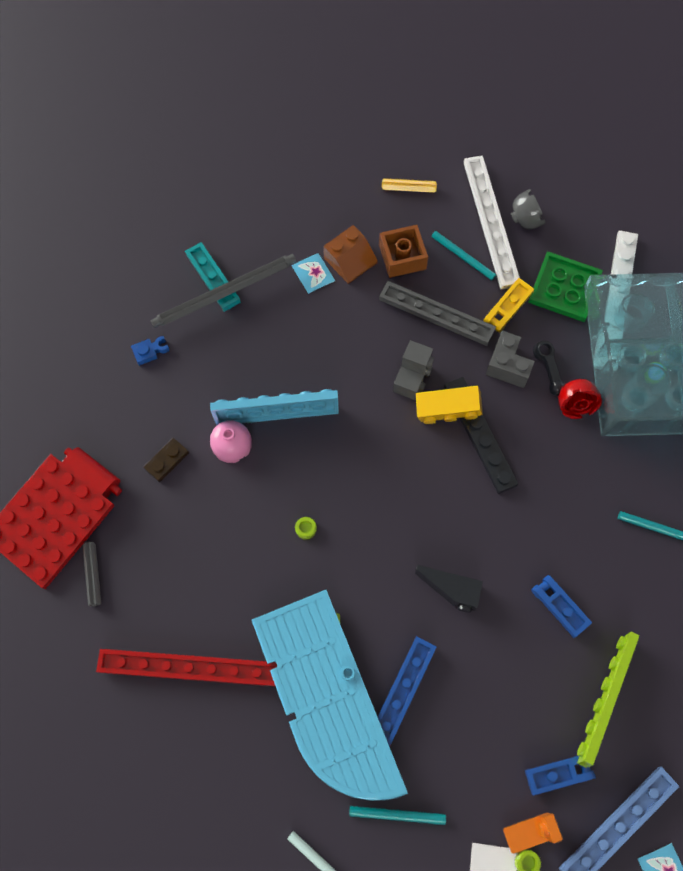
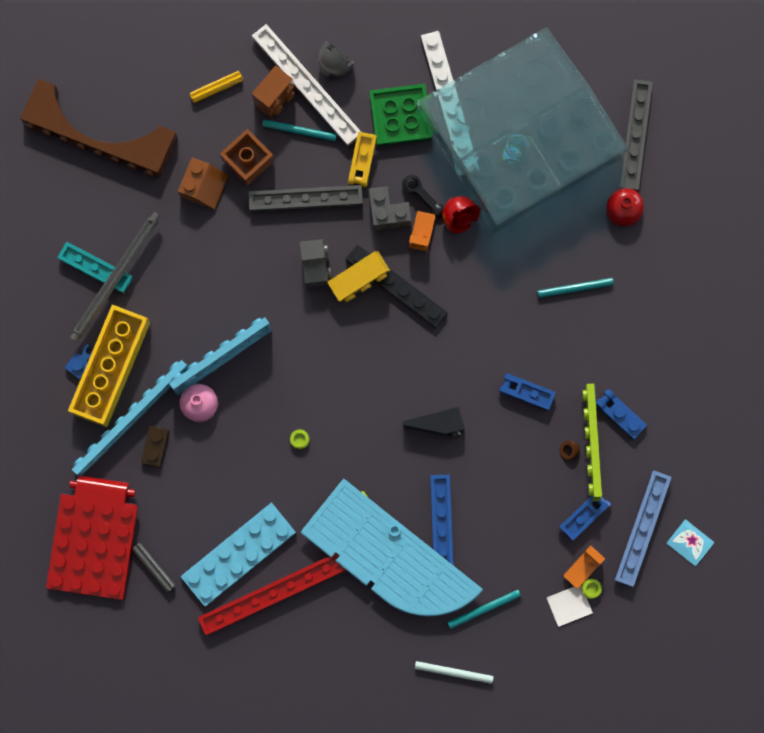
camera: 25 degrees left, 10 degrees up
(149, 423) = (124, 423): none -> medium azure plate
(169, 364) = (109, 366): none -> yellow brick
(179, 608) = (238, 554): none -> medium azure plate
(313, 273) = (179, 216): medium azure sticker -> none
(315, 206) = (145, 153): none -> reddish brown arch
(458, 208) = (273, 92): none -> dark orange brick
(532, 397) = (422, 231): none -> orange bracket
(584, 692) = (575, 450): none -> reddish brown piece
(651, 685) = (621, 414): none -> blue plate

